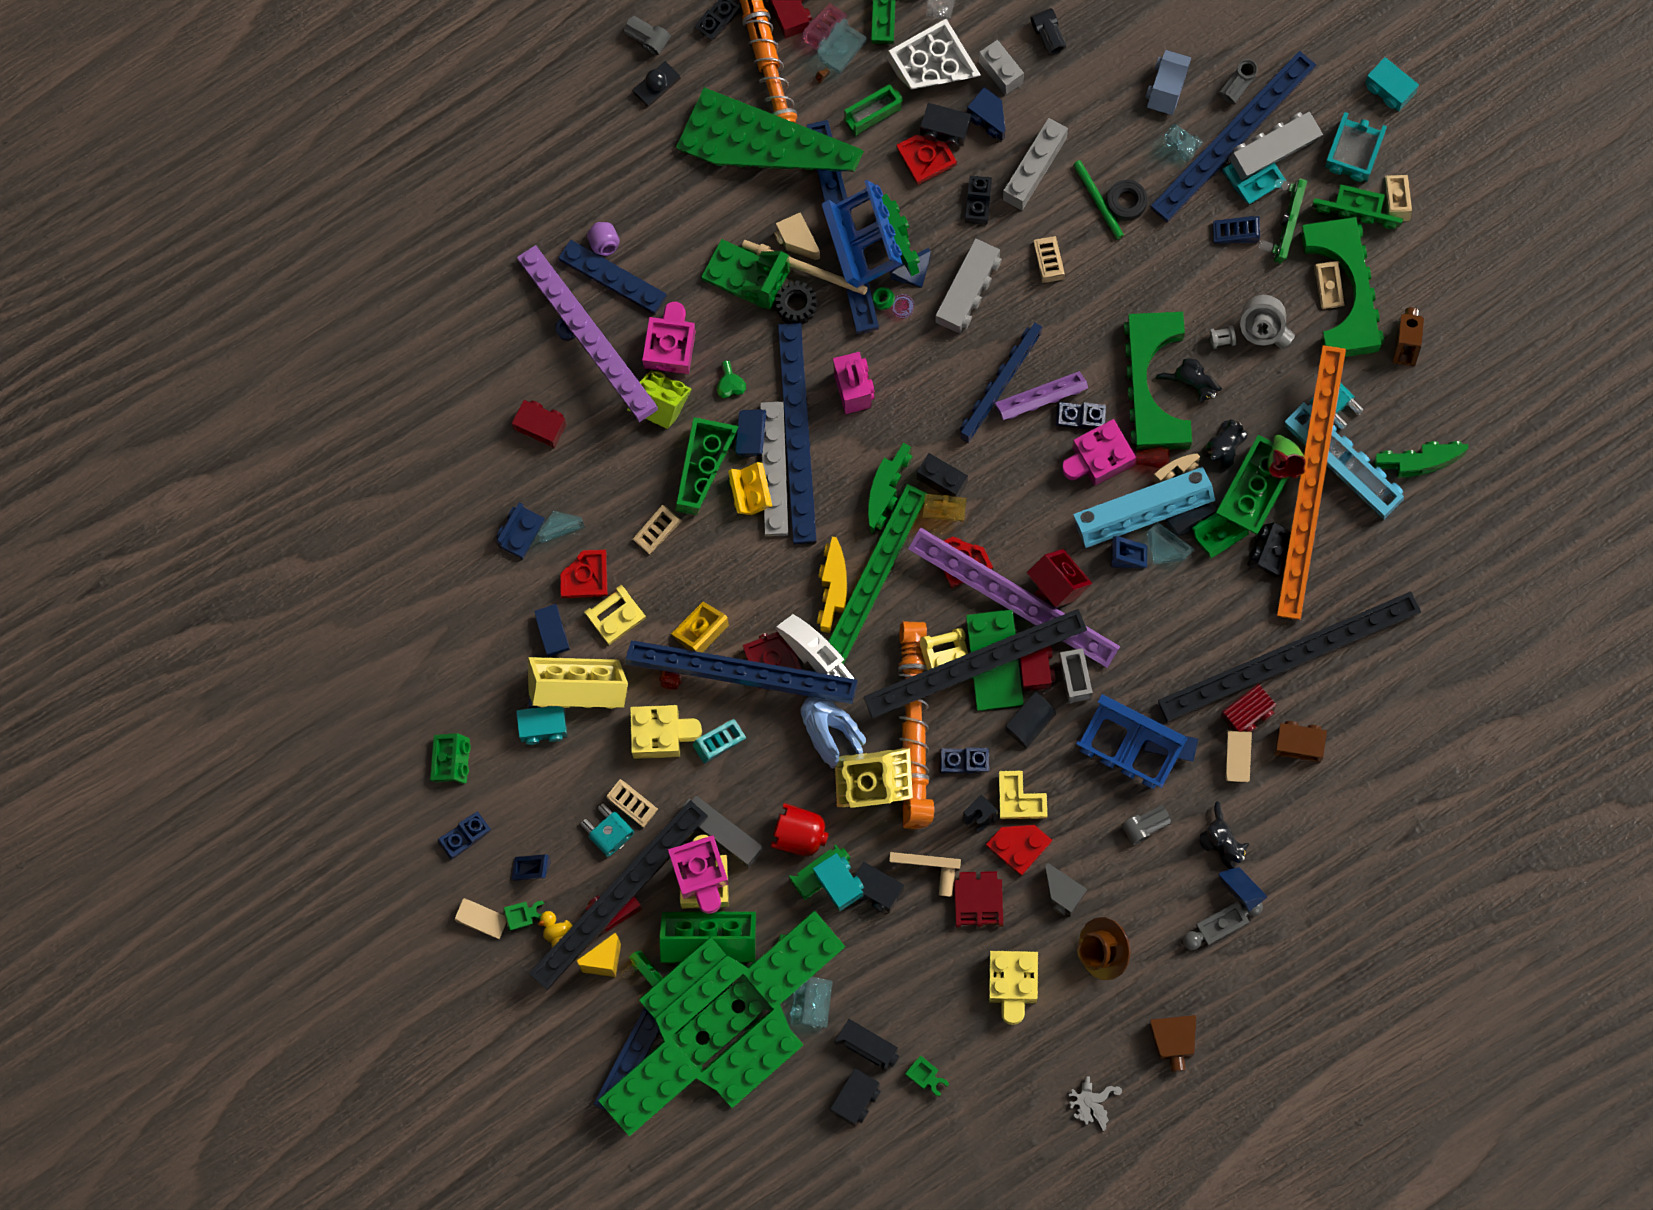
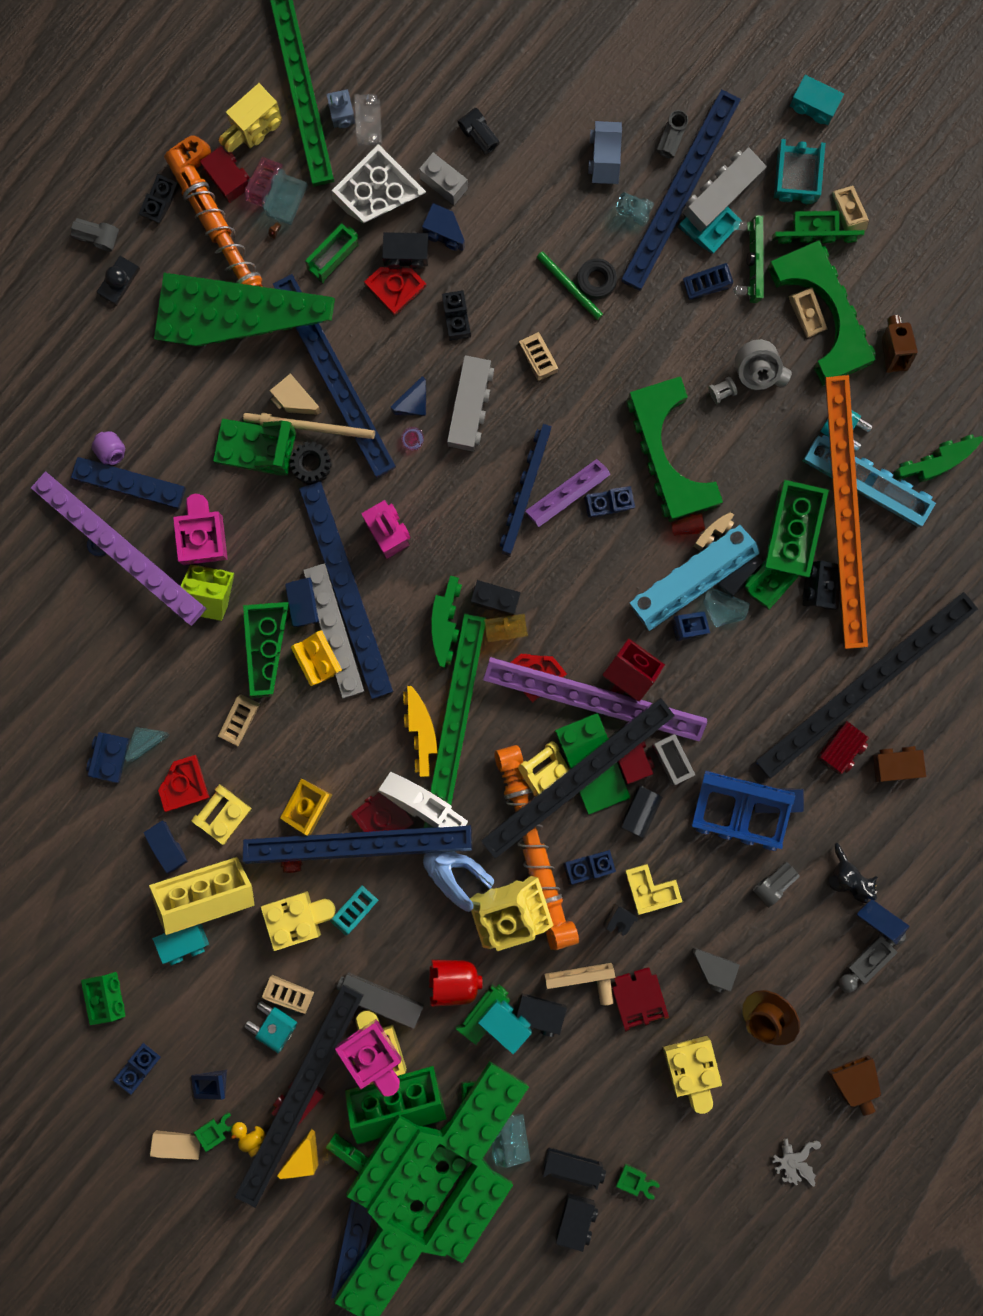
camera: 20 degrees left, 10 degrees up
(539, 423) = (97, 647): dark red brick -> none
(730, 382) = (269, 557): green rock -> none
(851, 243) = (347, 391): blue window -> none
(879, 294) = (388, 432): green plate -> none
(901, 236) = (388, 373): green slope -> none
(1019, 846) = (663, 935): red plate -> none
(1035, 164) = (501, 266): light grey brick -> none
(1098, 453) = (637, 535): dark pink brick -> none
(1192, 374) = (704, 435): black animal -> none
(1225, 443) = (752, 494): black animal -> none
(1238, 756) = (846, 796): tan slope -> none
(1285, 459) = (819, 497): dark red hat -> none

